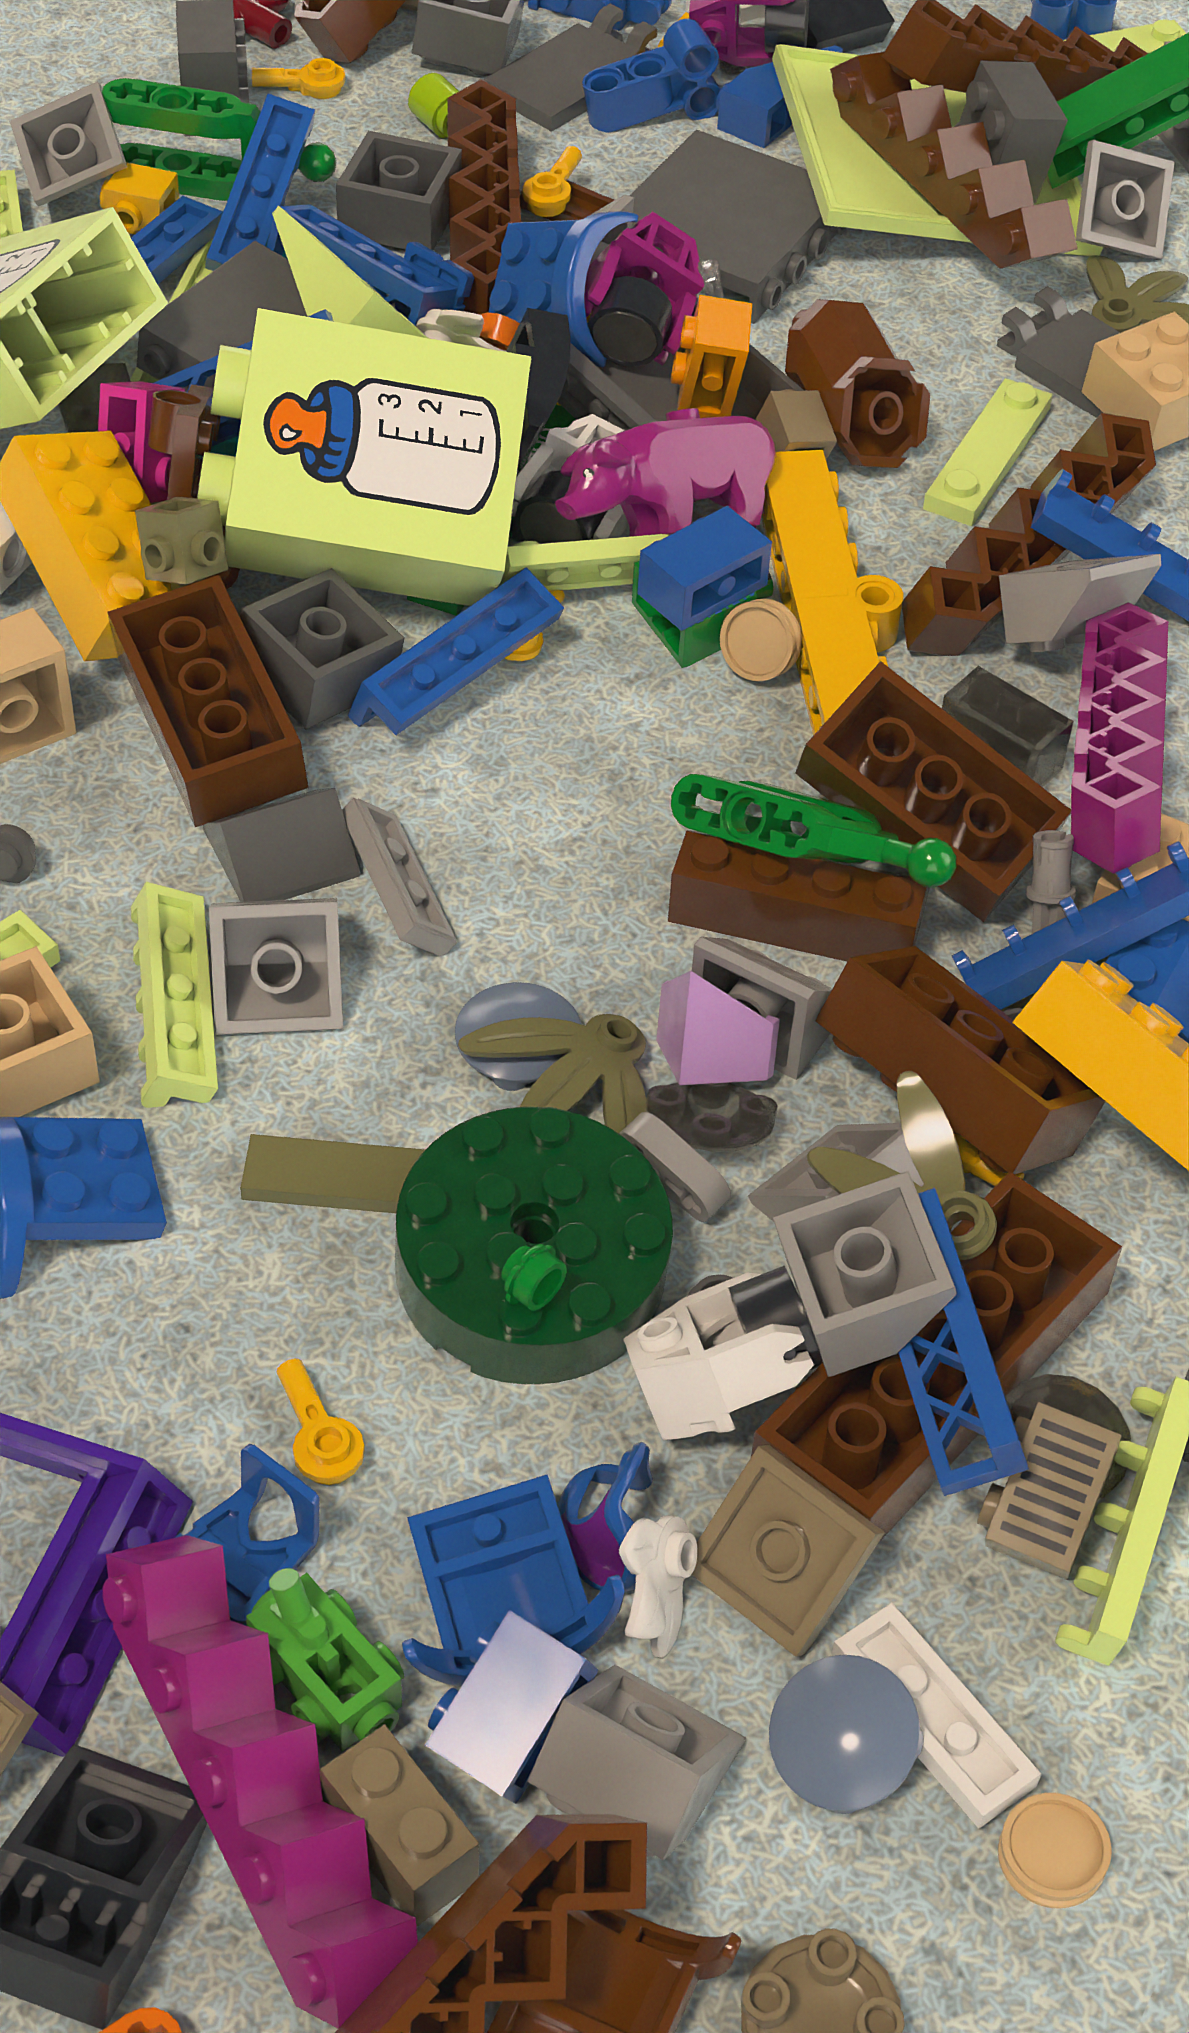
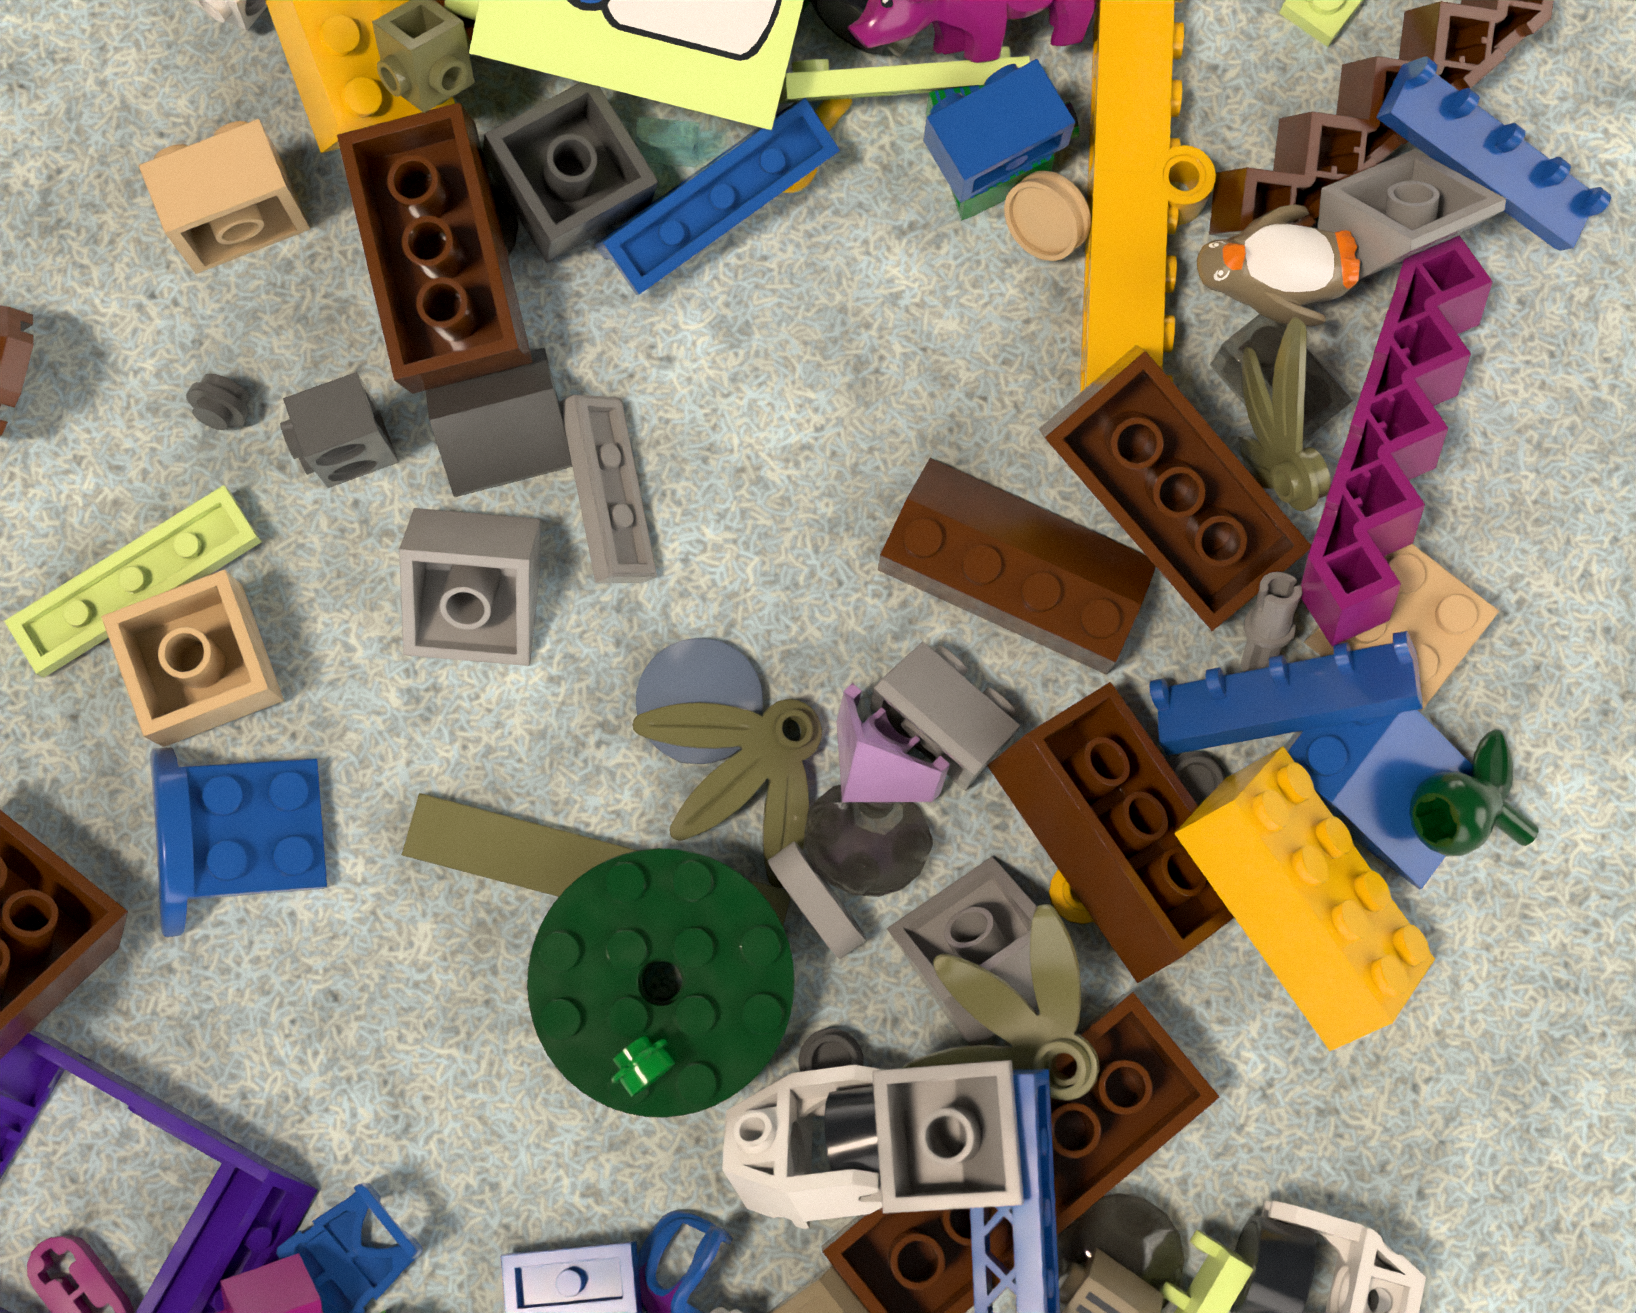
camera: 10 degrees right, 30 degrees up
(131, 840) = (337, 431): none -> dark grey brick
(174, 996) = (366, 606): yellowish green hinge -> none
(326, 1446) = (443, 1157): yellow plate -> none
(409, 618) = (669, 141): none -> clear light blue tile
(832, 830) = (1048, 544): green piece -> none
(980, 629) = (1281, 266): none -> animal
(1030, 741) = (1278, 457): none -> olive plant

